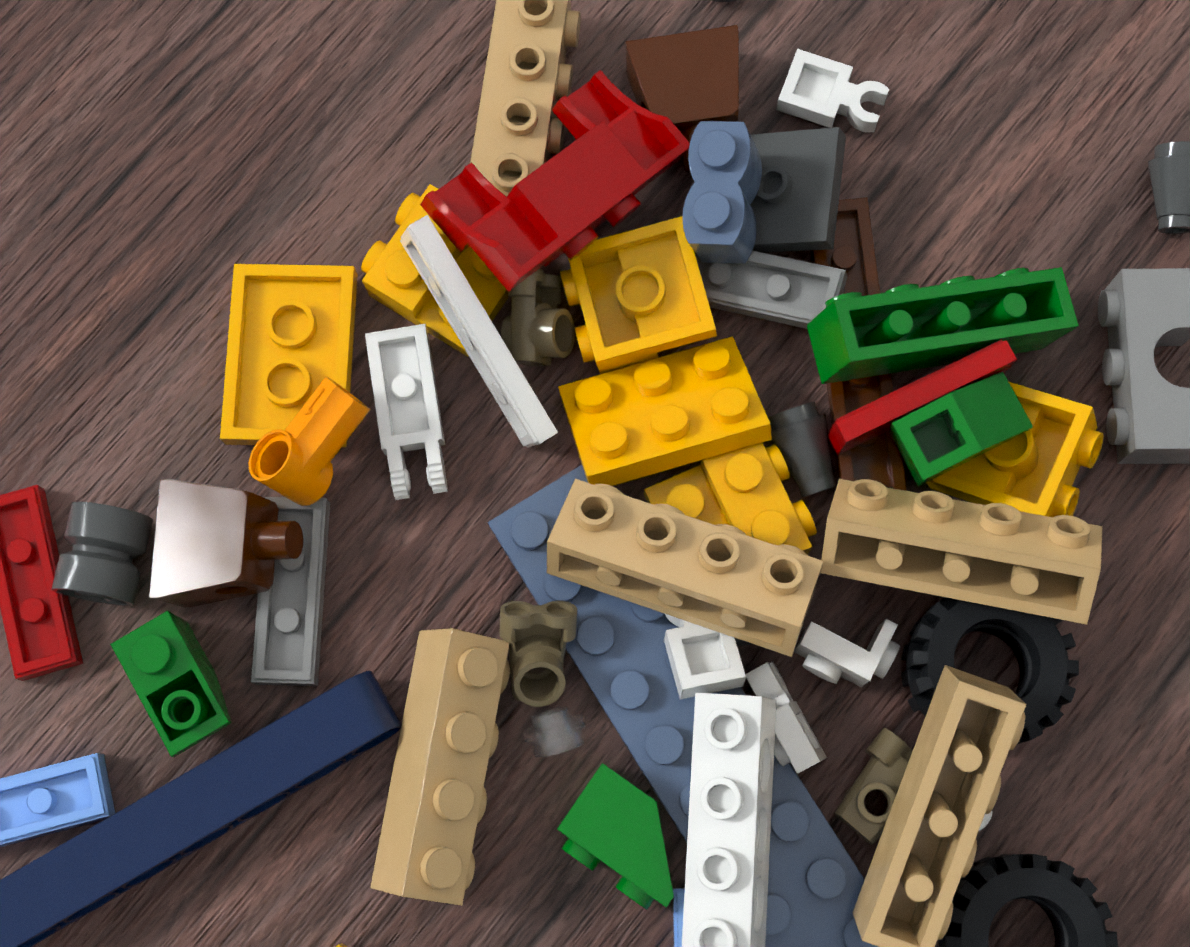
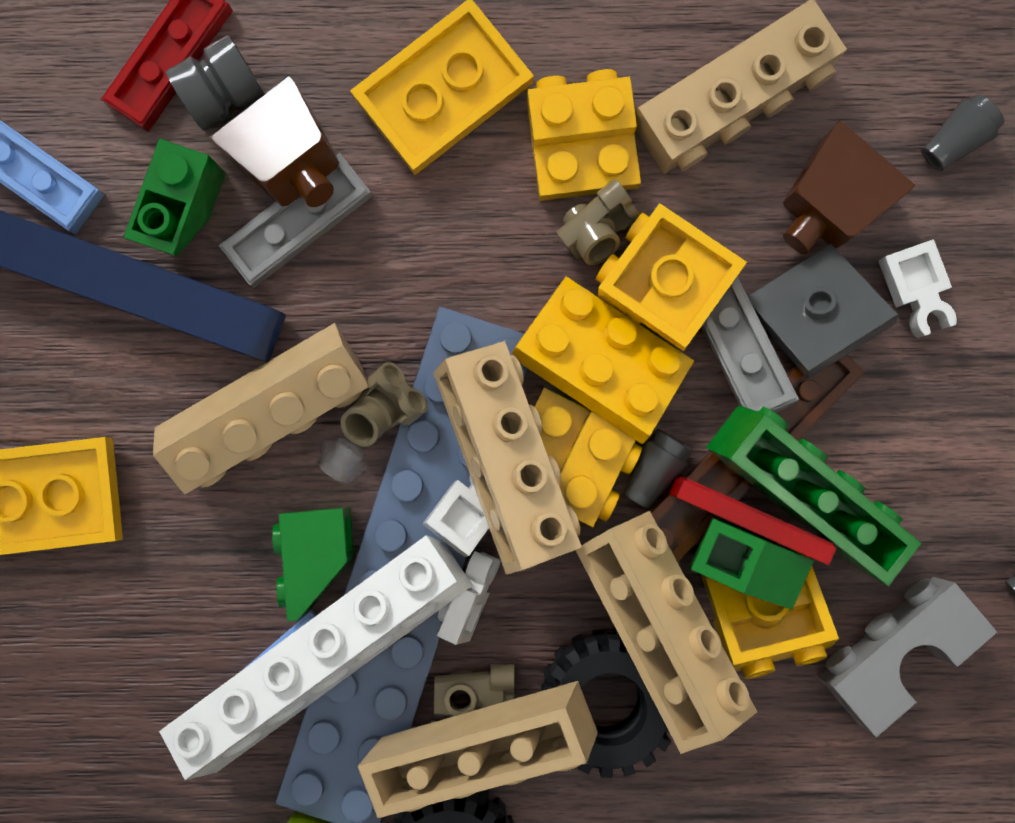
camera: 45 degrees right, 10 degrees up
(301, 456) = (378, 152): light orange piece -> none
(406, 403) = (473, 189): white hinge -> none
(477, 333) = (552, 192): white tile -> none
(570, 195) = (695, 174): red bracket -> none
(726, 181) = (795, 269): sand blue brick -> none
(835, 657) = (533, 596): white bracket -> none

